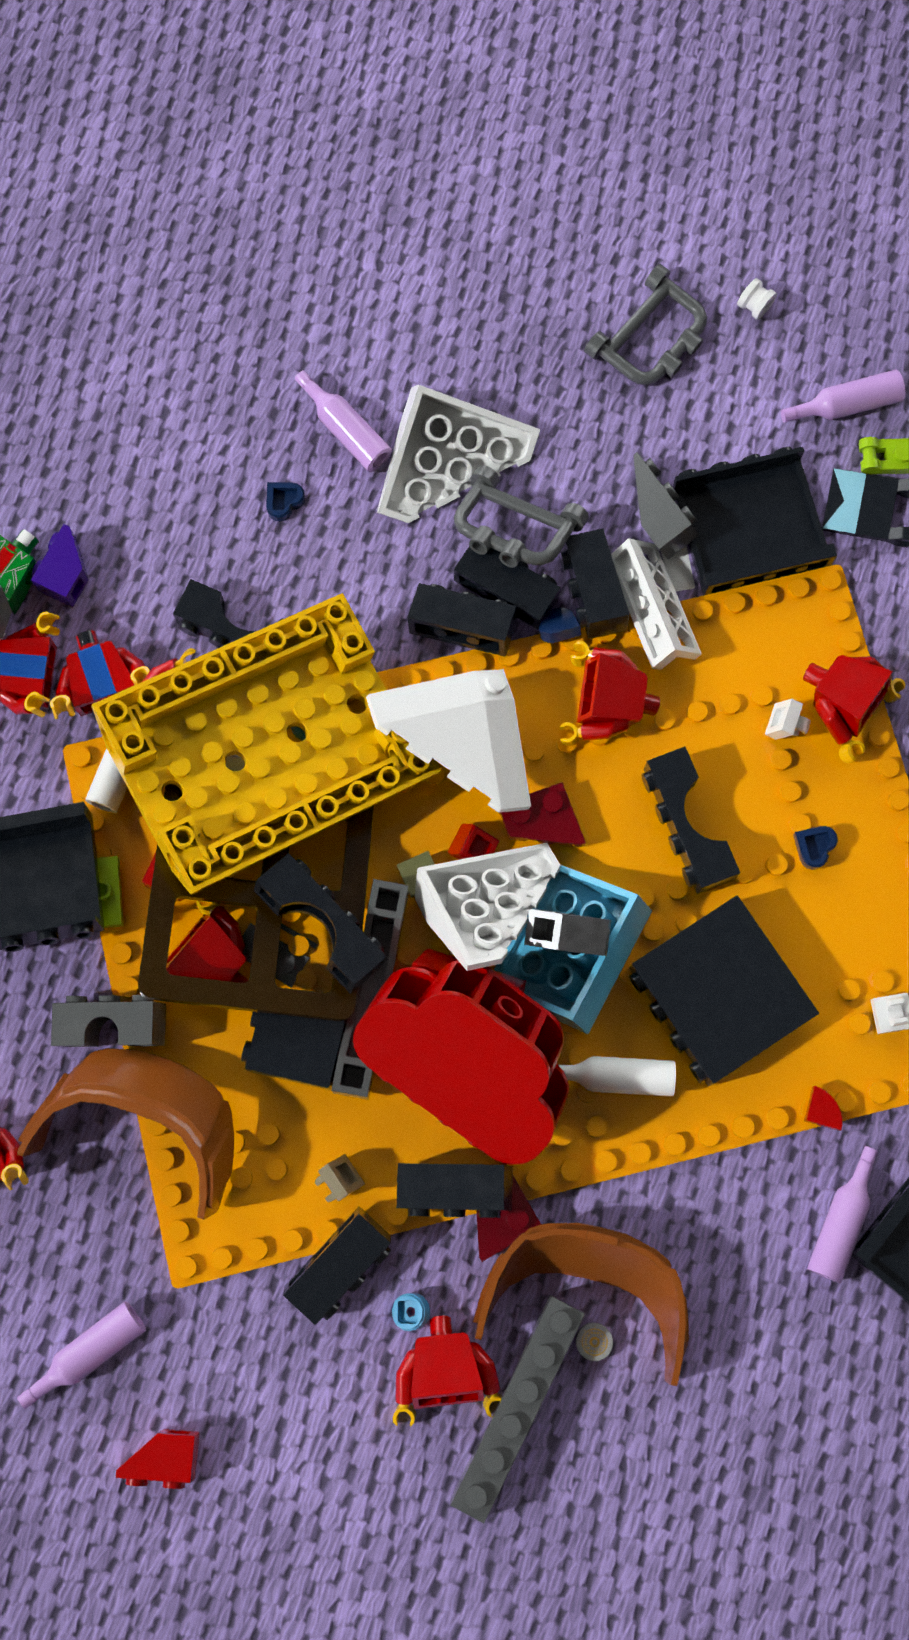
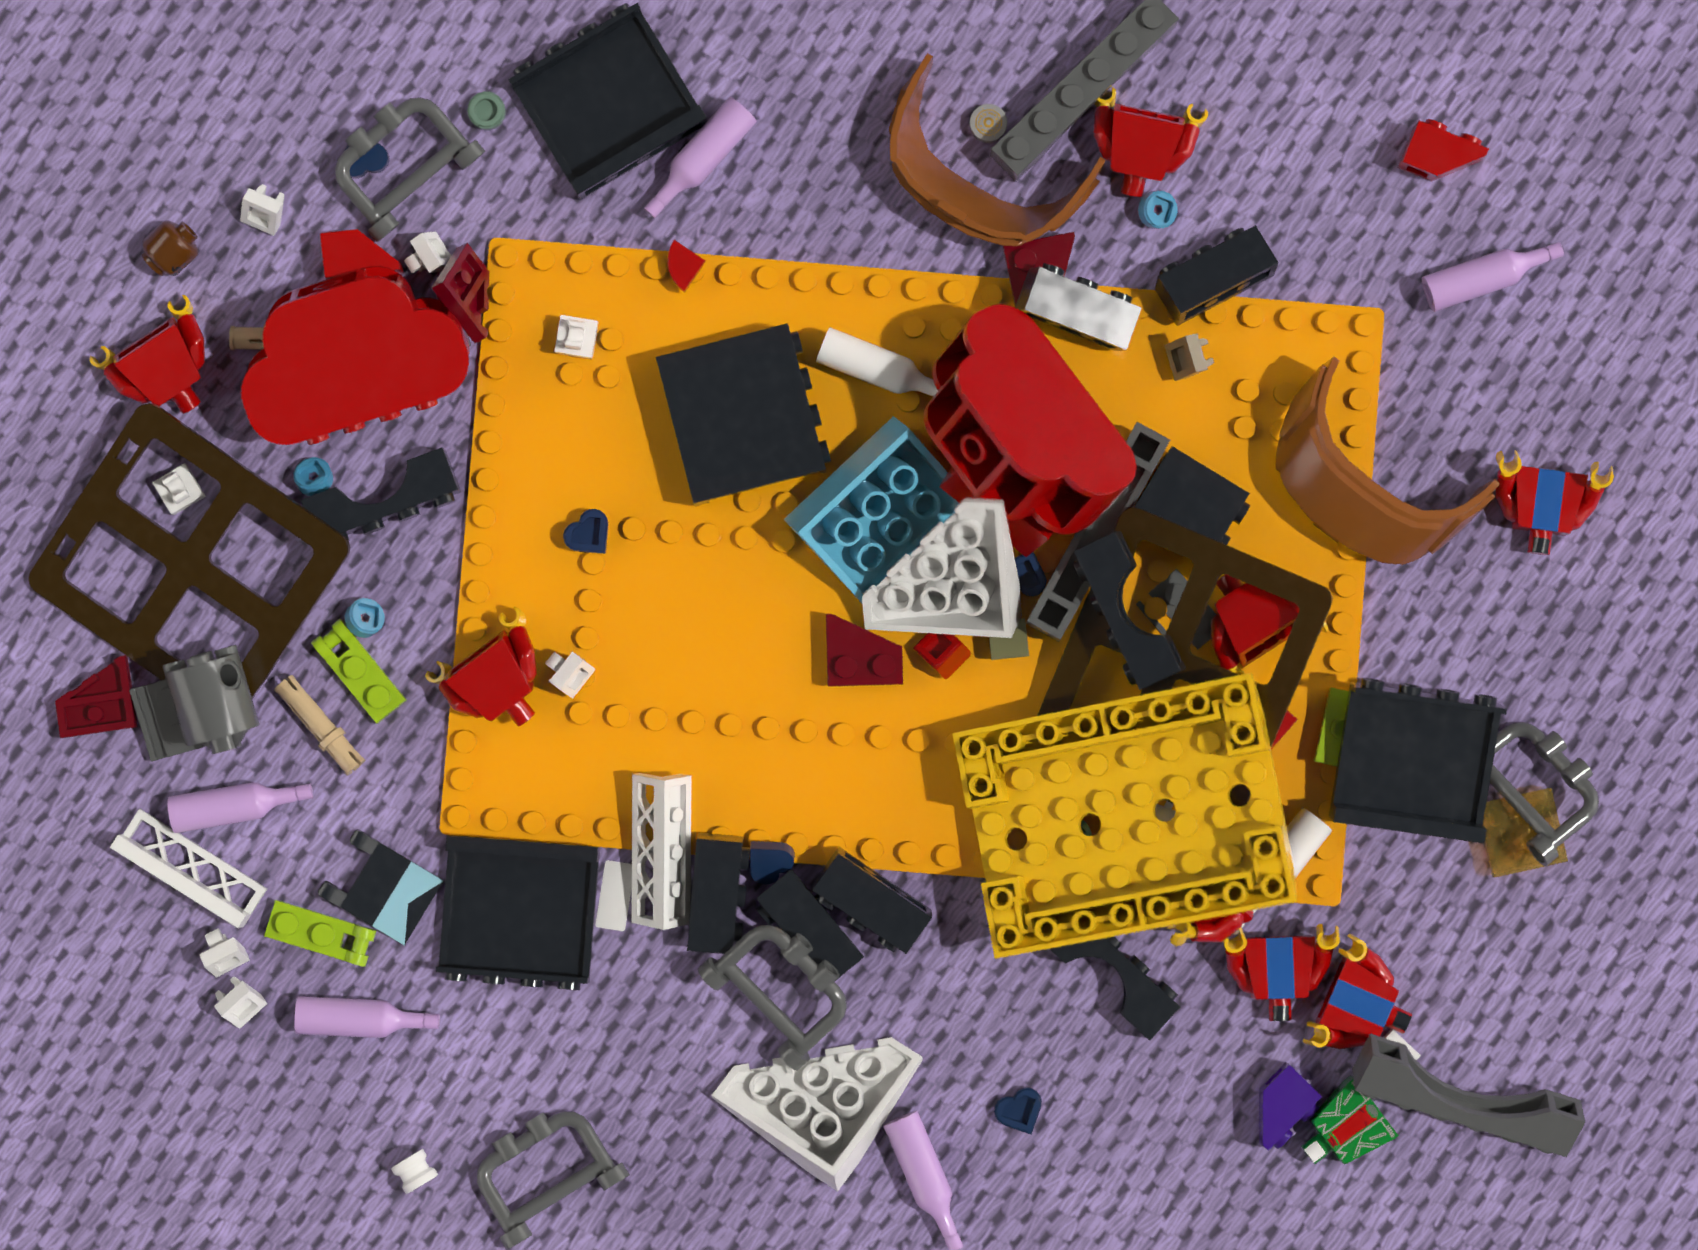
camera: 160 degrees left, 10 degrees up
(80, 1022) = (1402, 602): dark grey arch -> none
(420, 935) = (1030, 575): none -> dark blue tile
(465, 726) = (914, 767): white slope -> none
(567, 932) = (884, 517): flat silver slope -> none
(610, 695) = (745, 760): red torso -> none
(659, 514) = (616, 950): dark grey slope -> none
(705, 860) = (709, 550): black arch -> none

